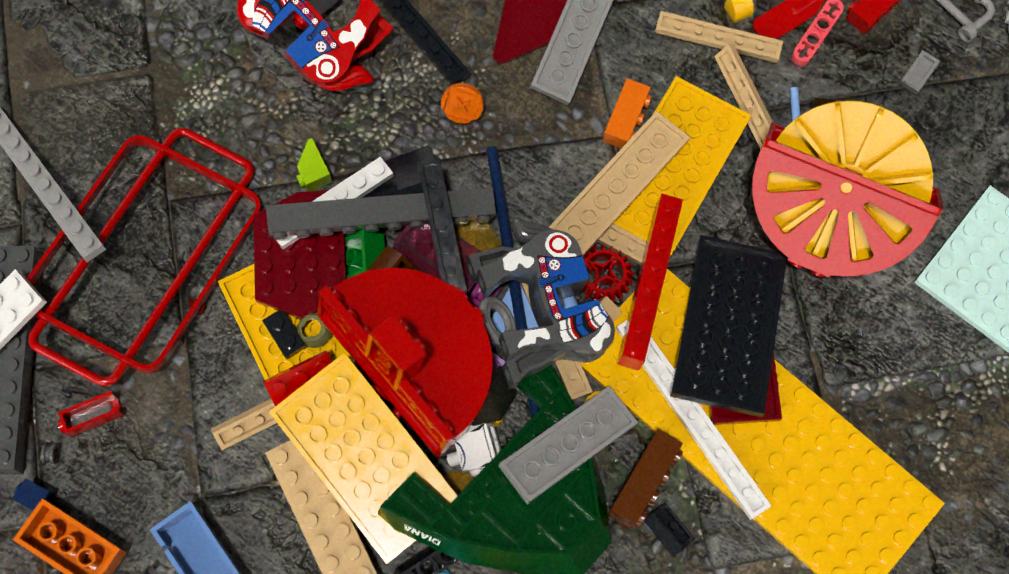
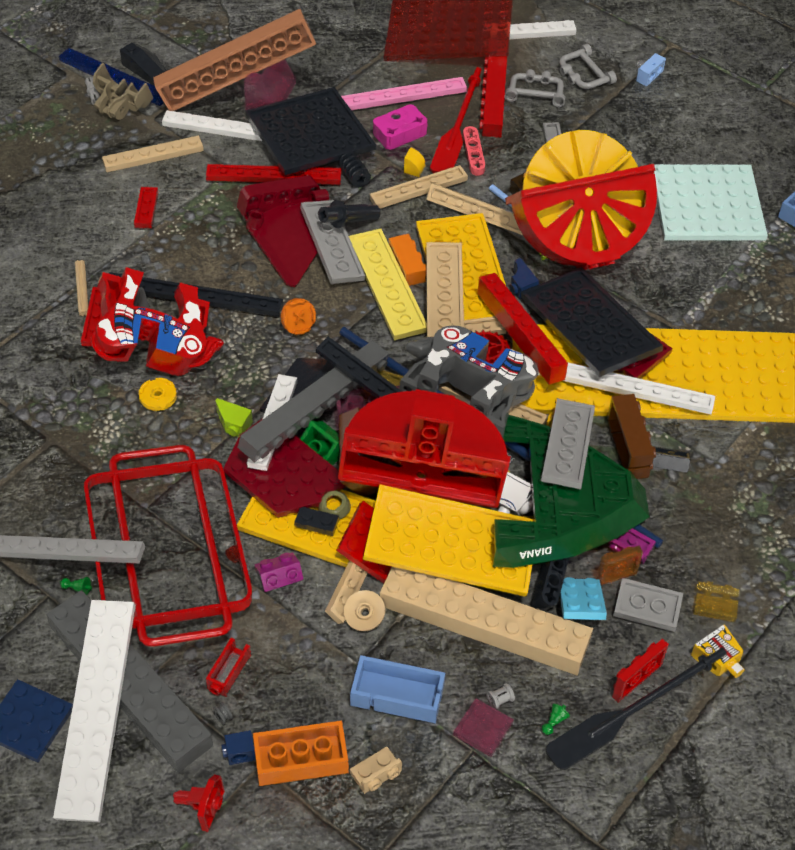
camera: 40 degrees left, 20 degrees down
(47, 235) = (77, 585): none -> green piece
(214, 354) = (279, 571): none -> magenta bracket
(235, 455) = (363, 601): none -> tan dish
(270, 82) = (157, 394): none -> yellow plate
(583, 126) = (388, 285): none -> light yellow plate
(600, 18) = (339, 213): none -> black gear
(717, 222) = (522, 279): none -> dark blue arch

